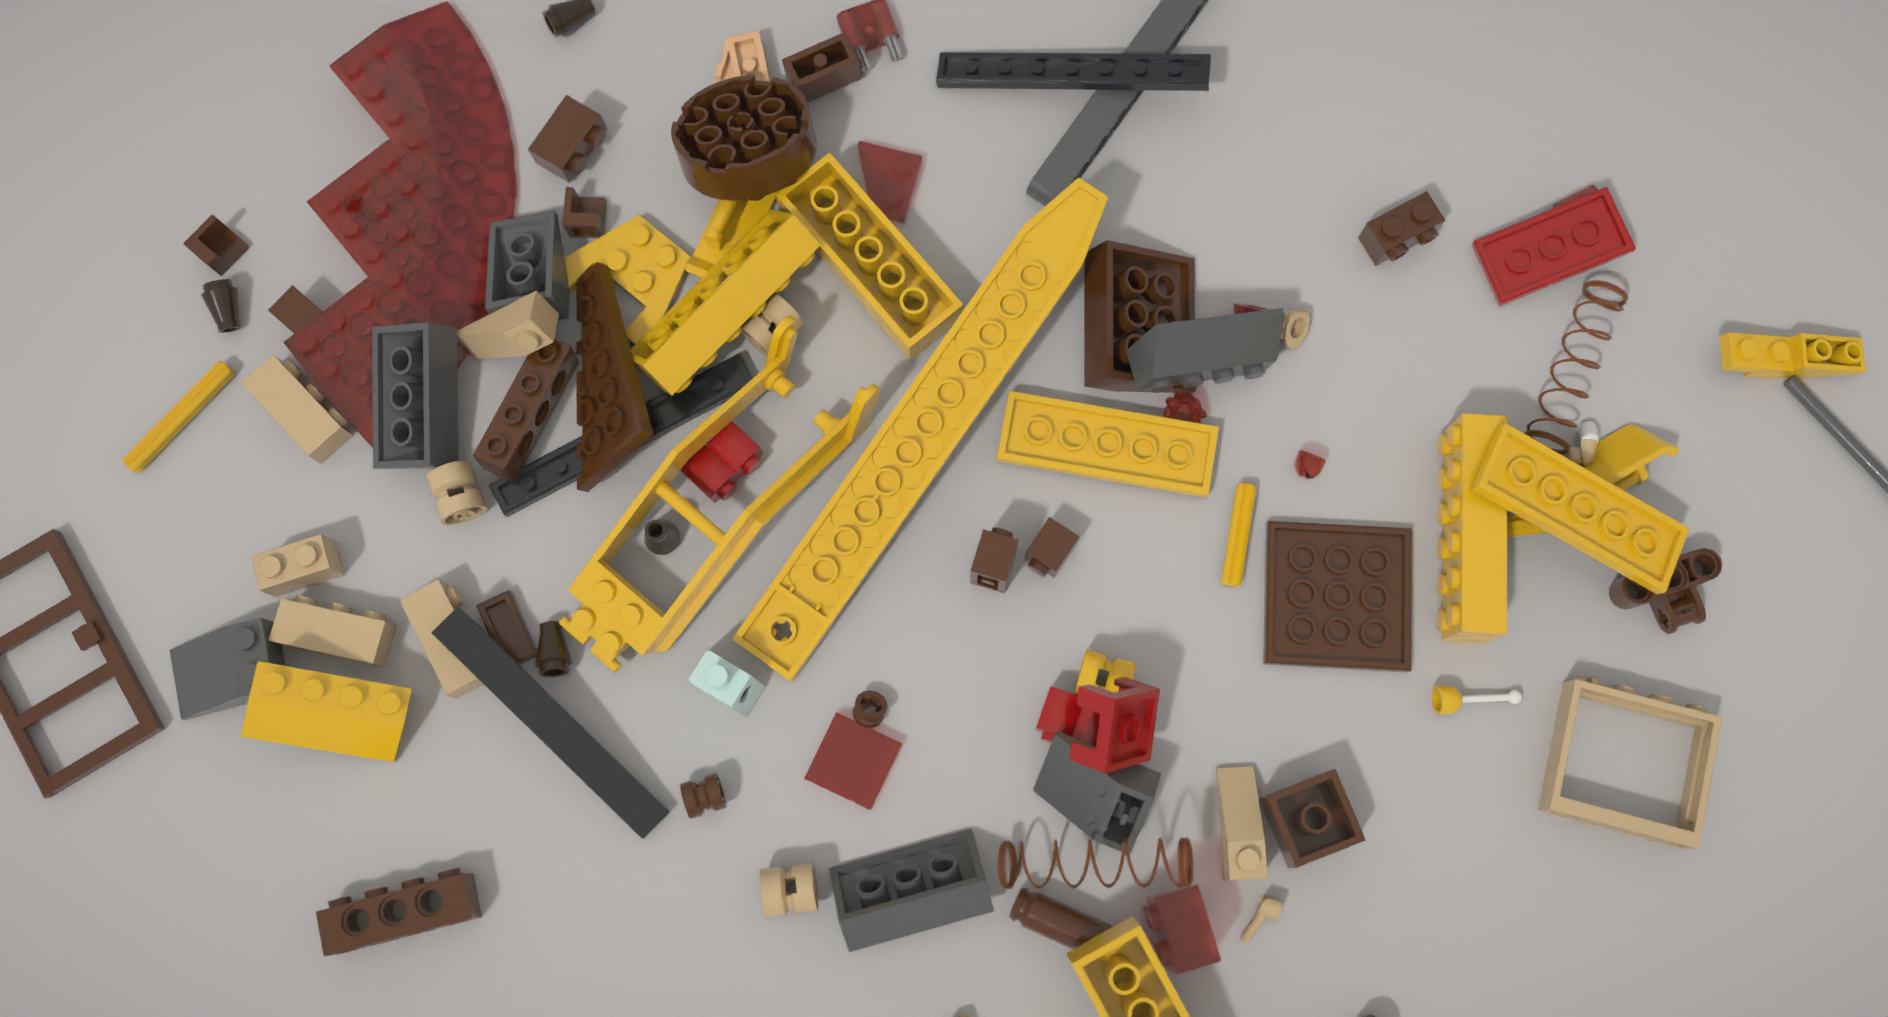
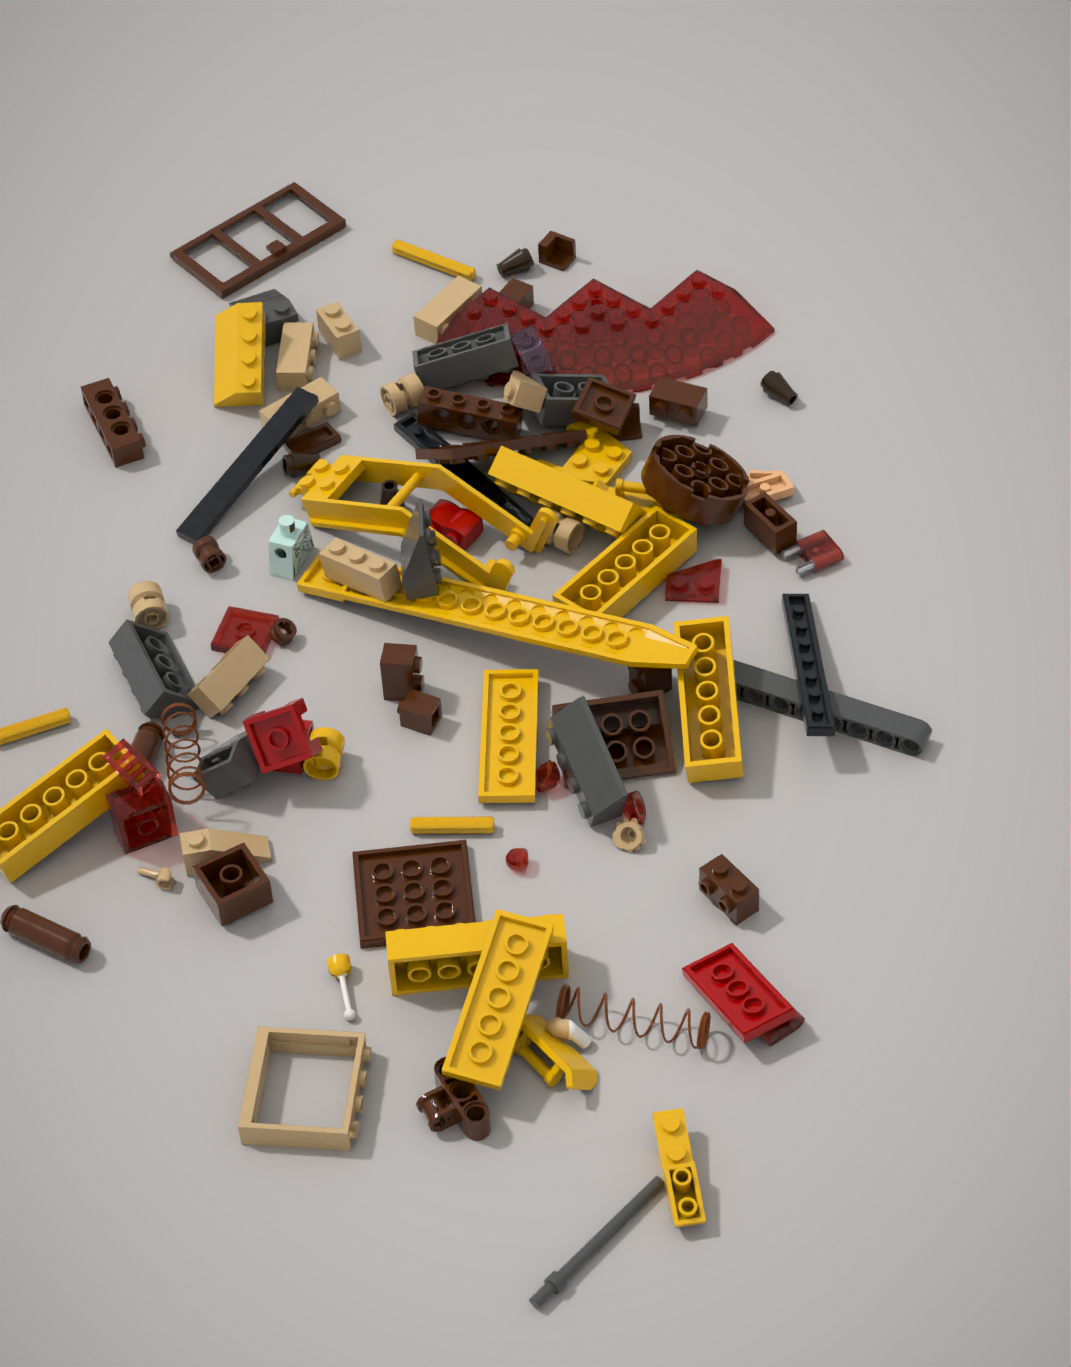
camera: 80 degrees right, 30 degrees down
(445, 302) = (533, 352): none -> brick
(571, 228) = (603, 406): none -> reddish brown plate
(812, 588) = (360, 570): none -> tan brick
(830, 503) = (420, 557): none -> dark grey slope
(948, 789) = (229, 677): none -> tan brick
(1143, 190) = (709, 702): none -> yellow brick
(1188, 927) = (146, 782): none -> clear red slope

